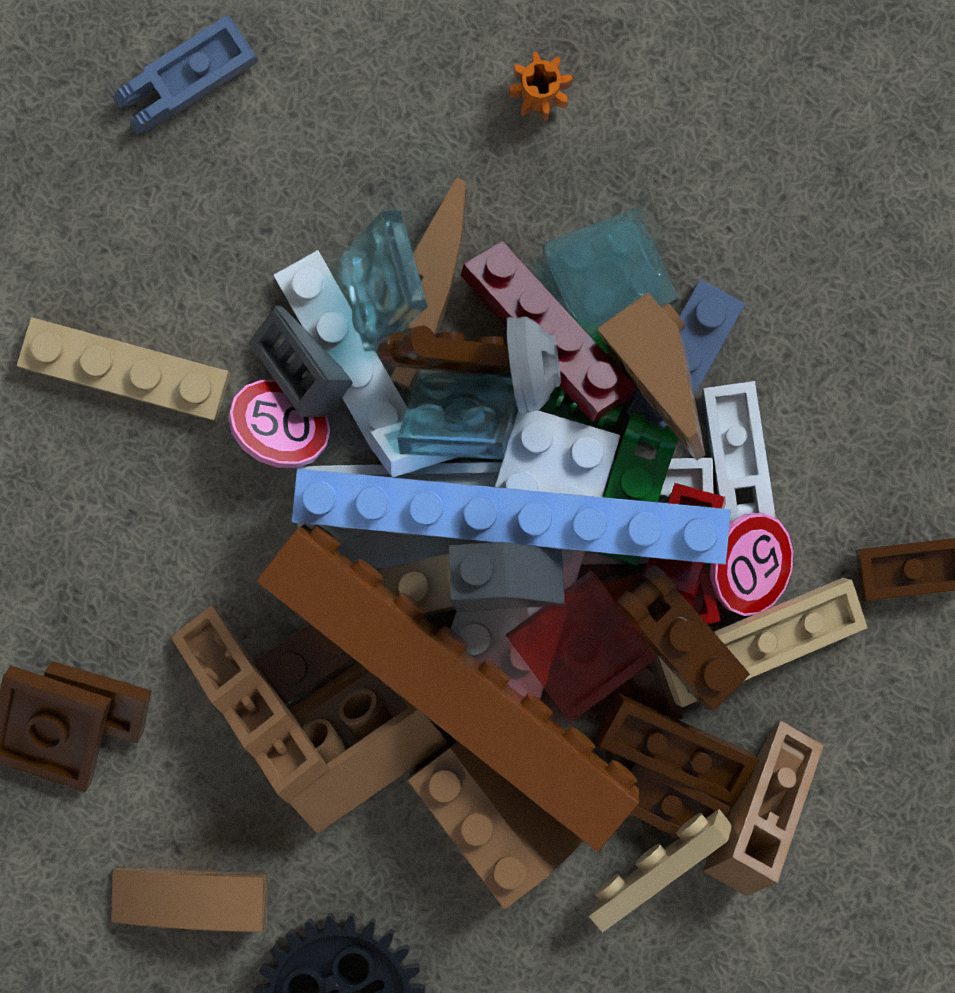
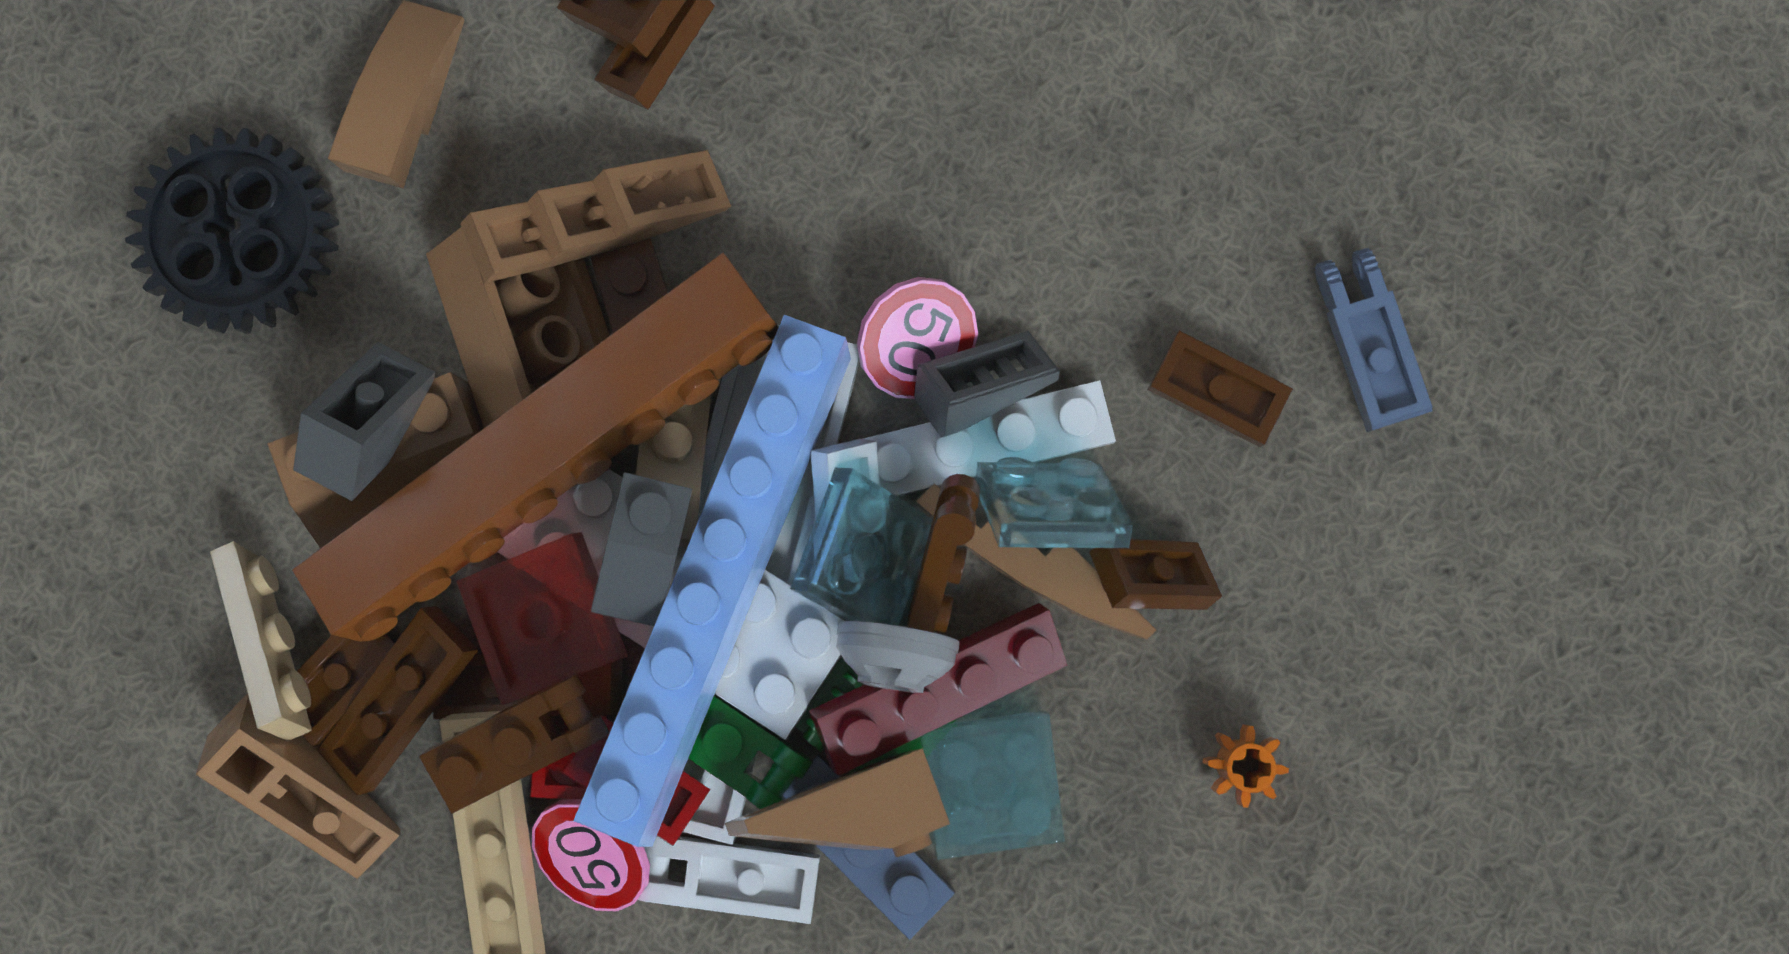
camera: 105 degrees right, 0 degrees up
(123, 369) = (1035, 177): tan plate -> none
(255, 181) = (1220, 389): none -> reddish brown plate
(415, 188) = (1156, 575): none -> reddish brown plate
(465, 830) = (360, 420): none -> dark grey slope

